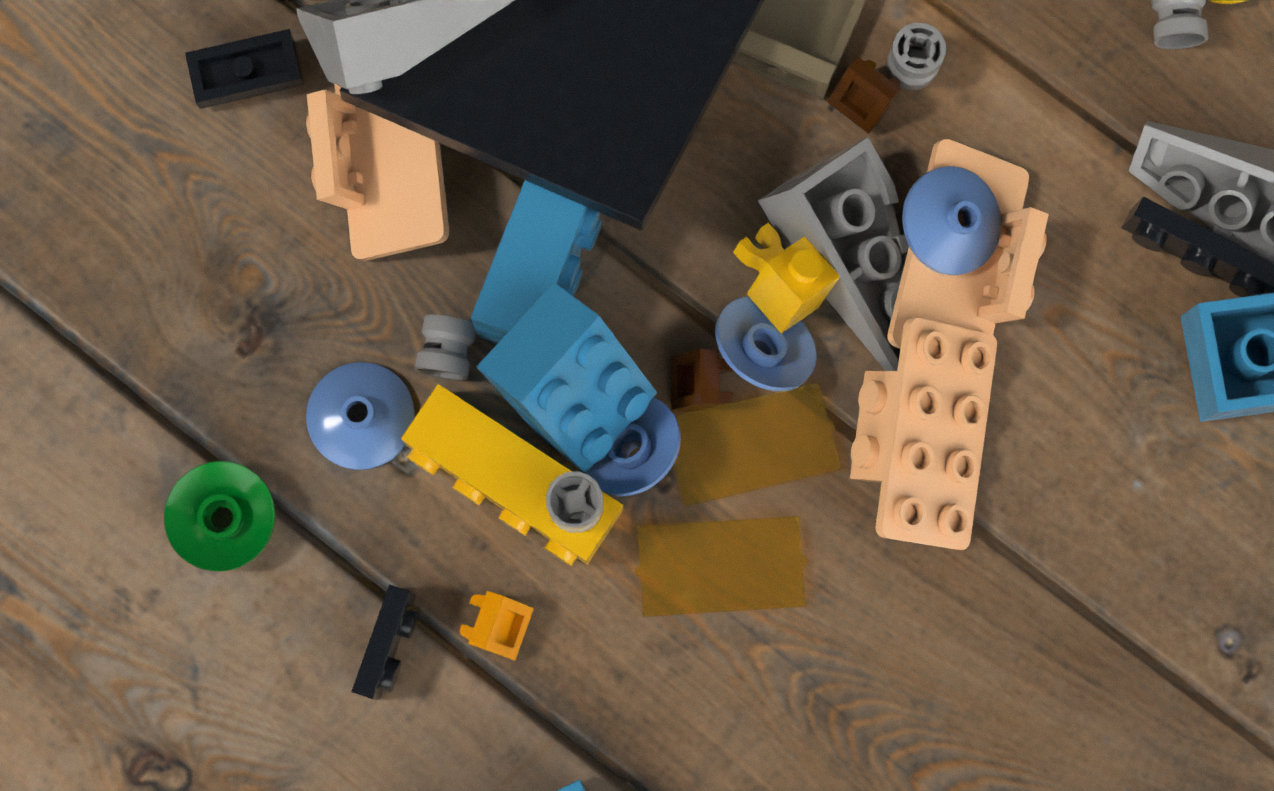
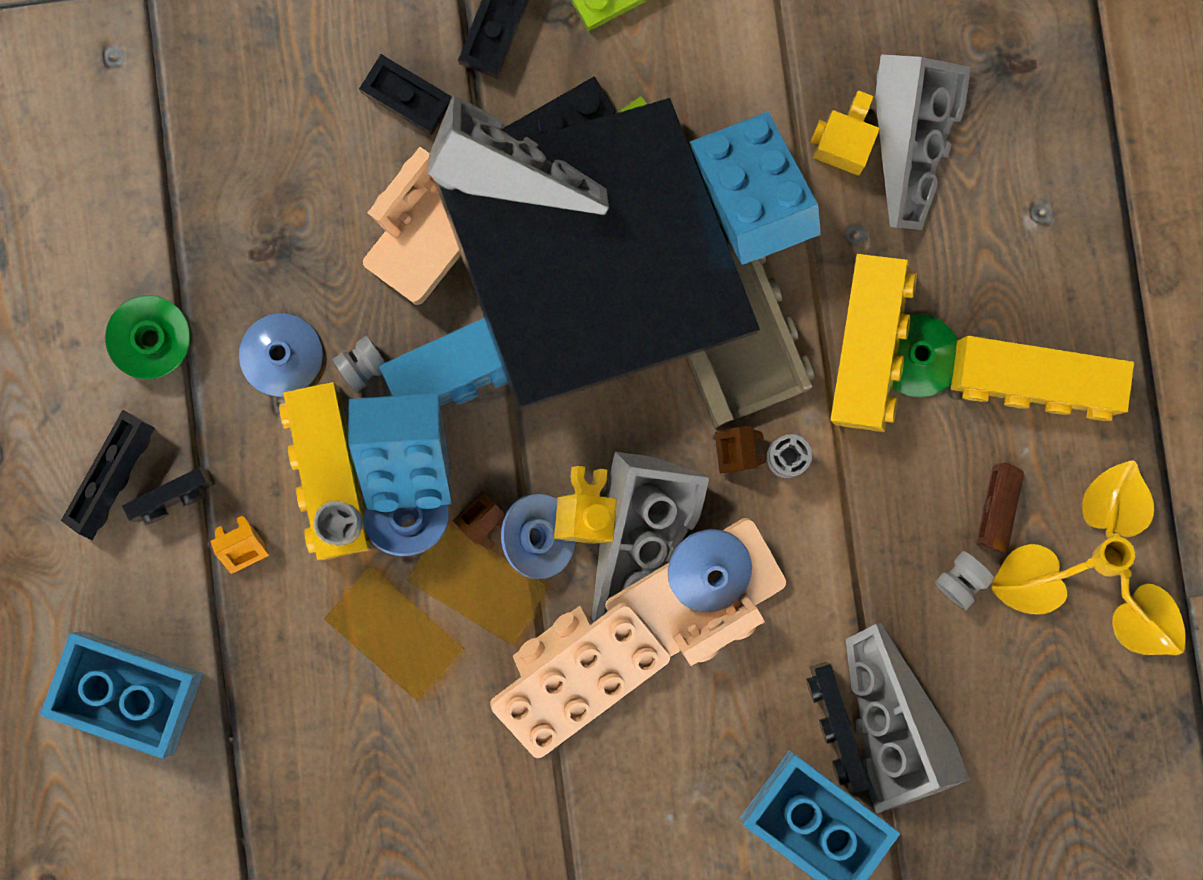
camera: 40 degrees right, 5 degrees up
(307, 680) = (108, 475): none -> black plate

